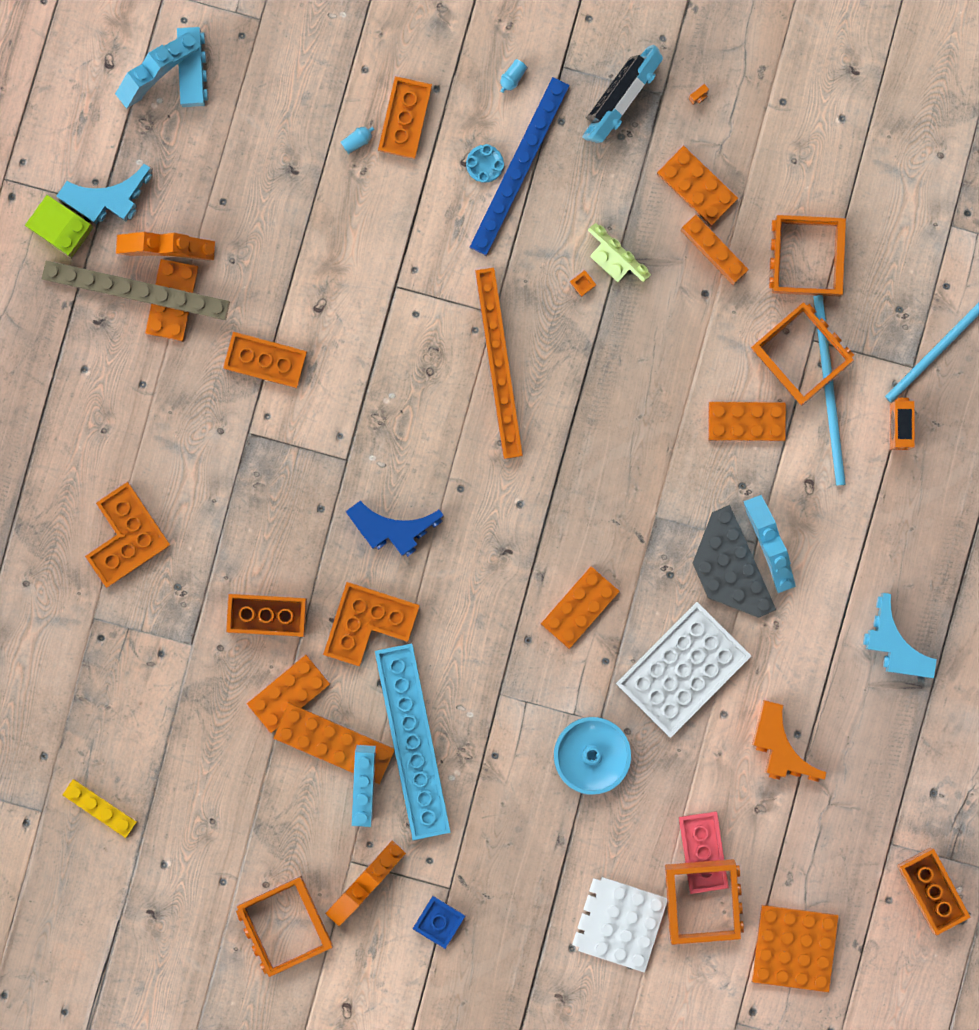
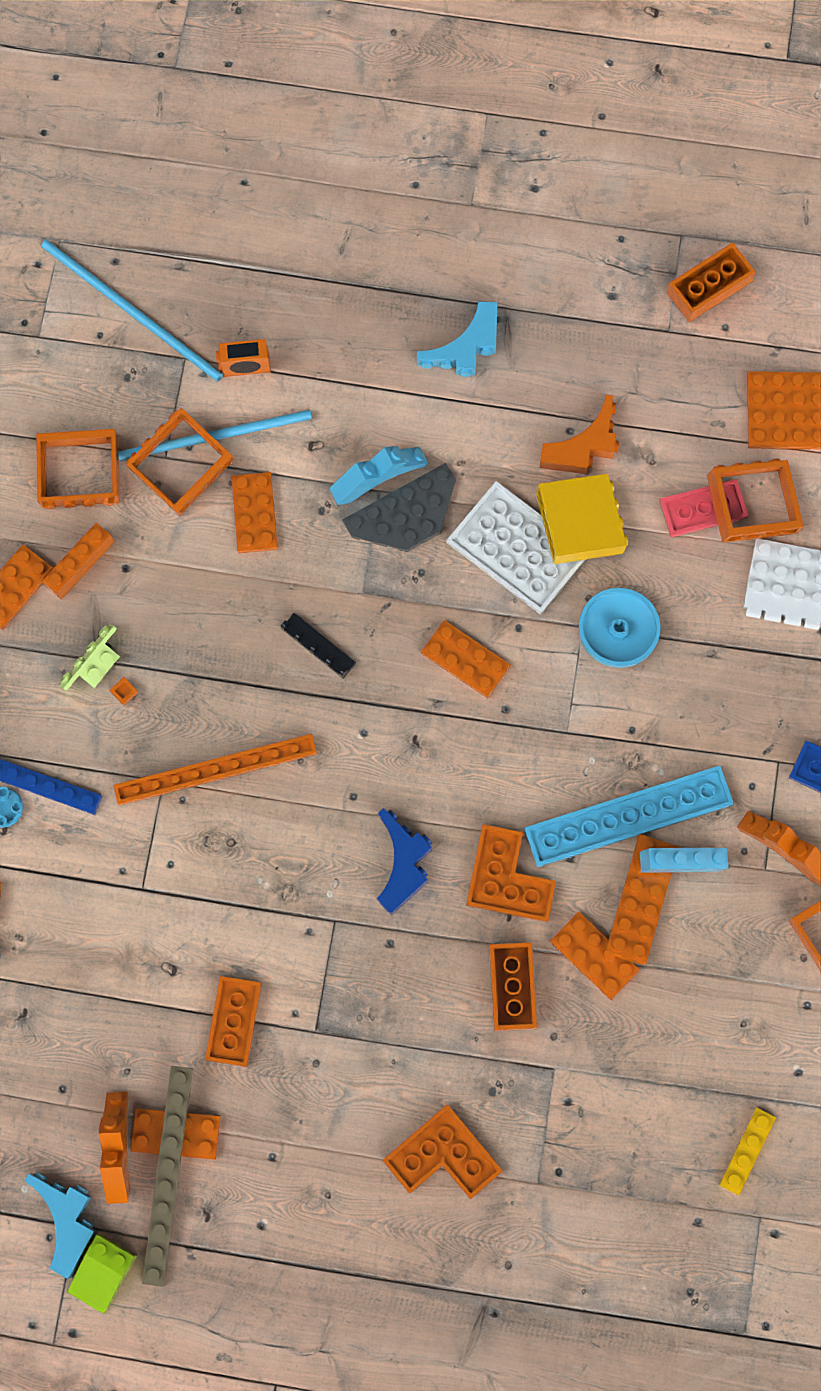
camera: 90 degrees left, 10 degrees down
(608, 470) = (318, 645): none -> black hinge
(703, 733) = (581, 518): none -> yellow brick

